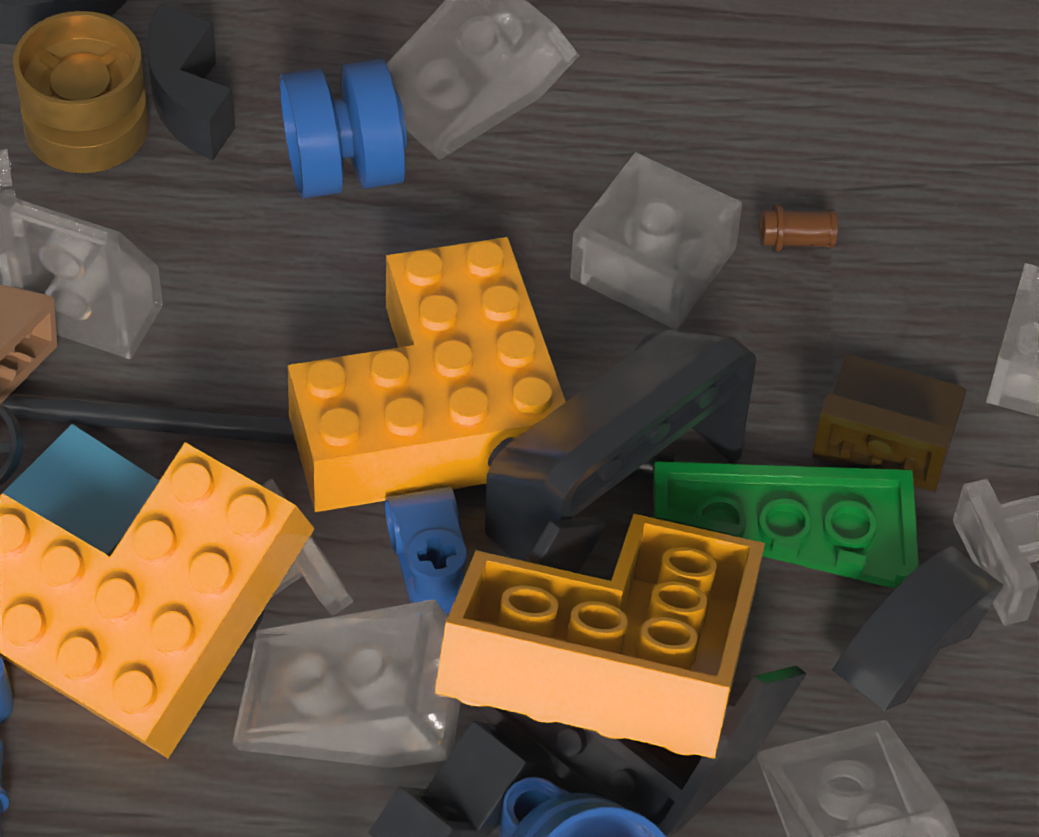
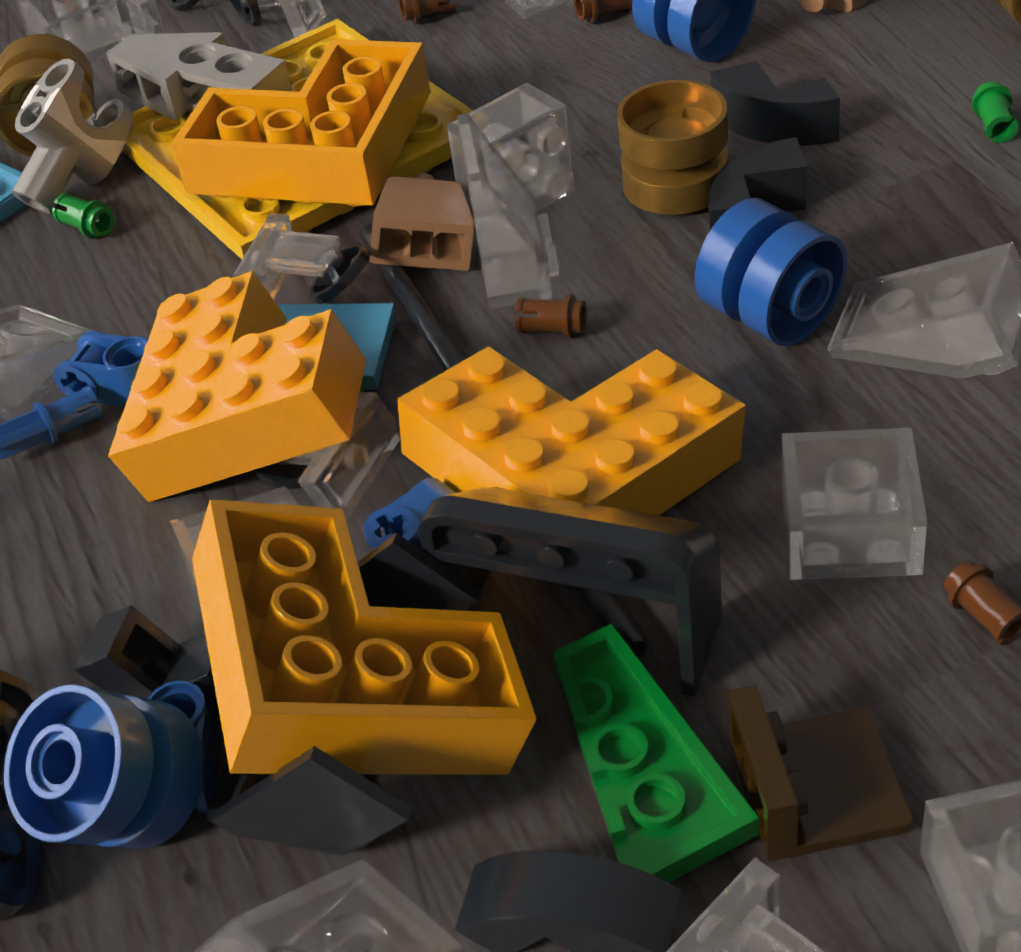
camera: 70 degrees right, 10 degrees down
(207, 316) = (554, 316): none -> reddish brown pin

